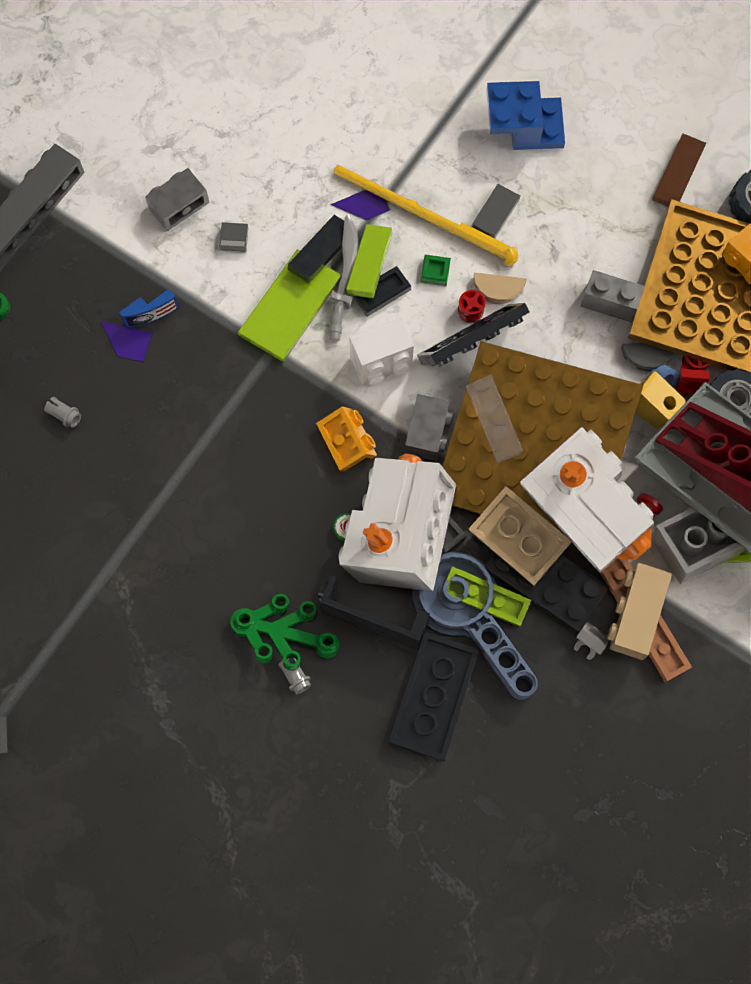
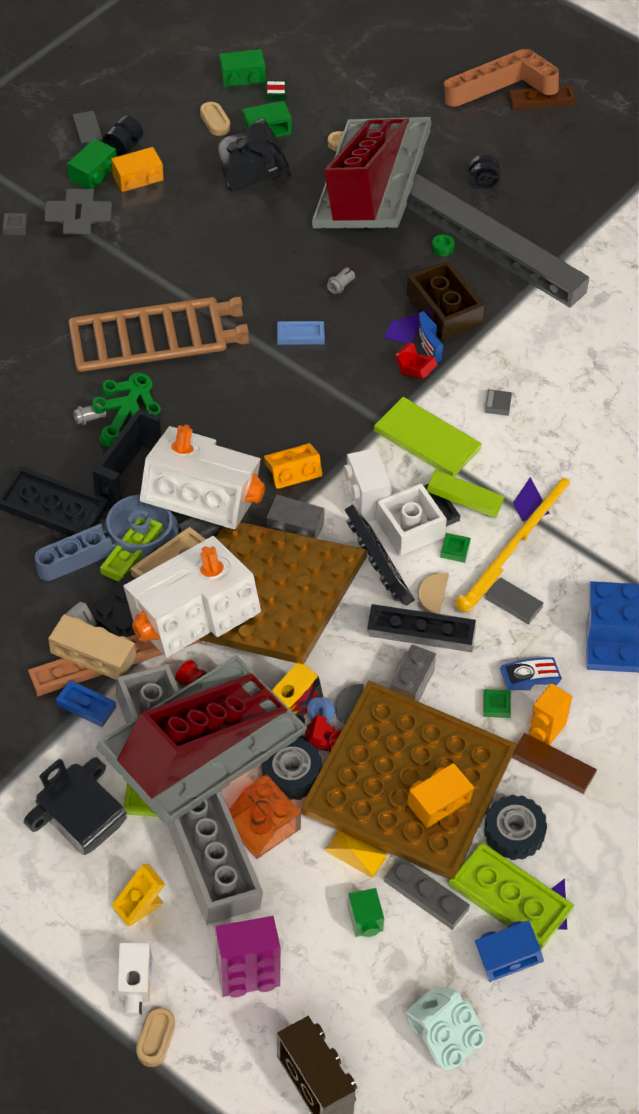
camera: 95 degrees right, 20 degrees down
(95, 292) = (445, 299): none -> dark brown brick
(145, 451) = (300, 332): none -> medium blue tile
(177, 199) = (535, 361): flat silver brick -> none
(189, 320) = (413, 363): none -> red bracket
(195, 617) = (222, 337): none -> medium nougat bar
(318, 250) = (479, 459): black tile -> none
(340, 299) = (427, 471): light grey sword -> none
(420, 305) = (411, 519): none -> white brick
(469, 300) = (411, 561): red wheel -> none
(494, 419) = (287, 550): clear tile -> none
(555, 289) = (421, 628): none -> black brick
(584, 192) = (530, 672): none -> slope
(620, 223) = (497, 703): none -> green tile
(643, 168) = (549, 714): none -> light orange brick
(694, 614) = (86, 703): none -> blue plate

